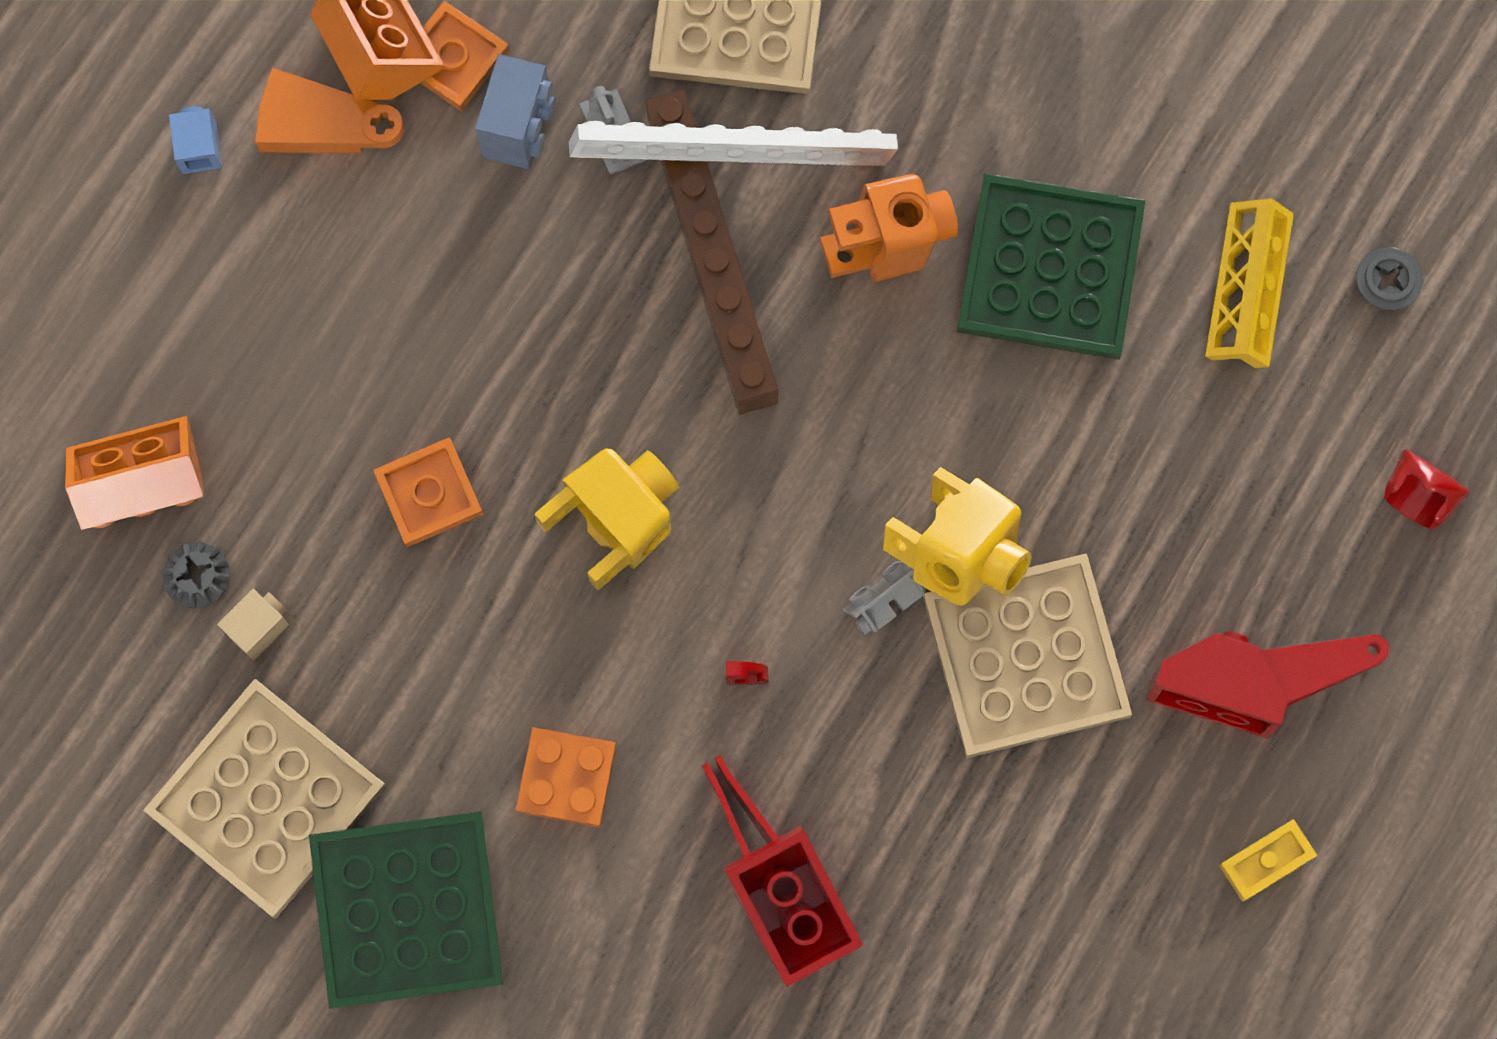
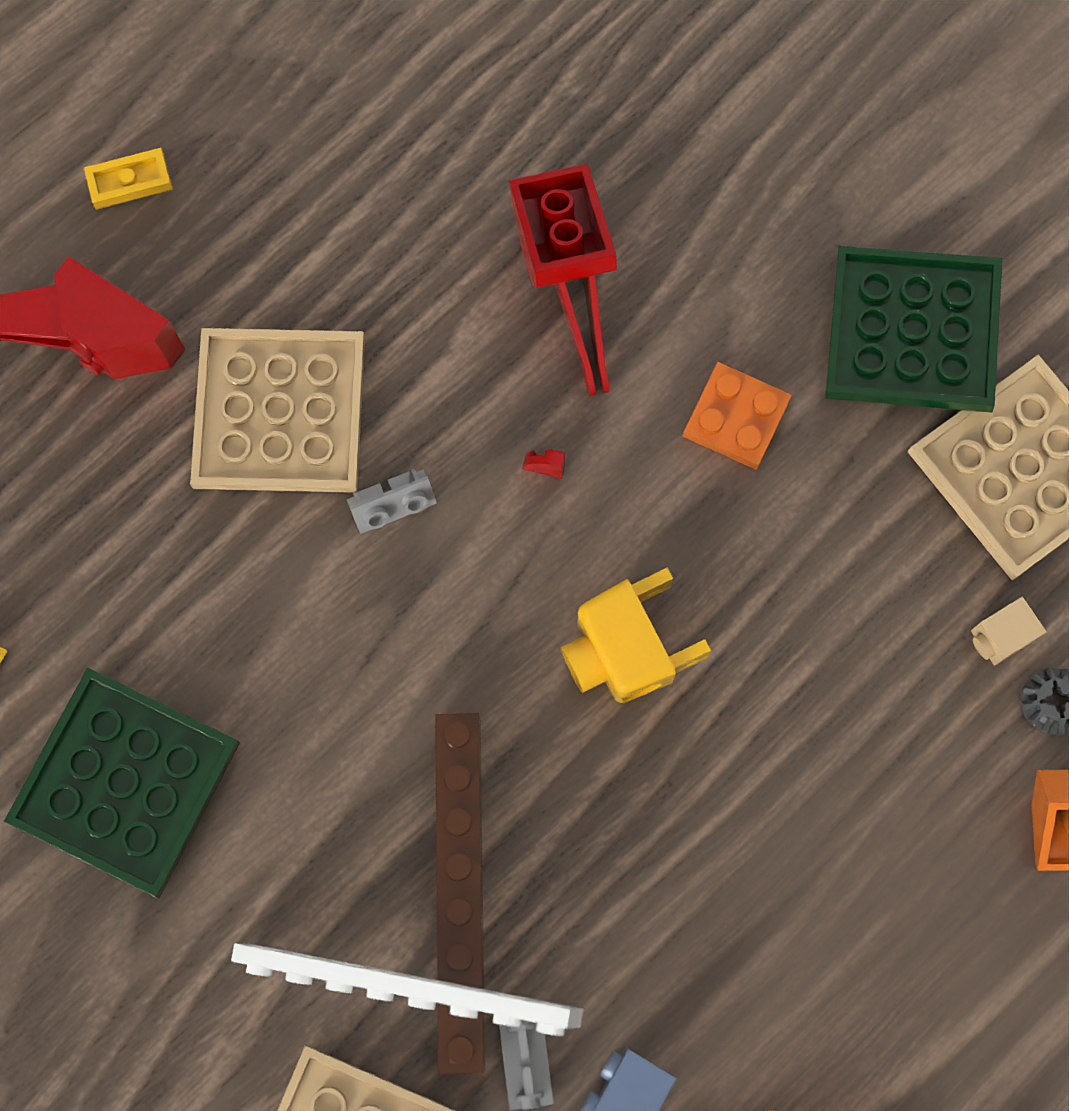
camera: 165 degrees left, 0 degrees up
(428, 492) = (808, 719): orange plate -> none
(892, 228) = (287, 855): orange piece -> none
(966, 544) = (293, 510): yellow piece -> none

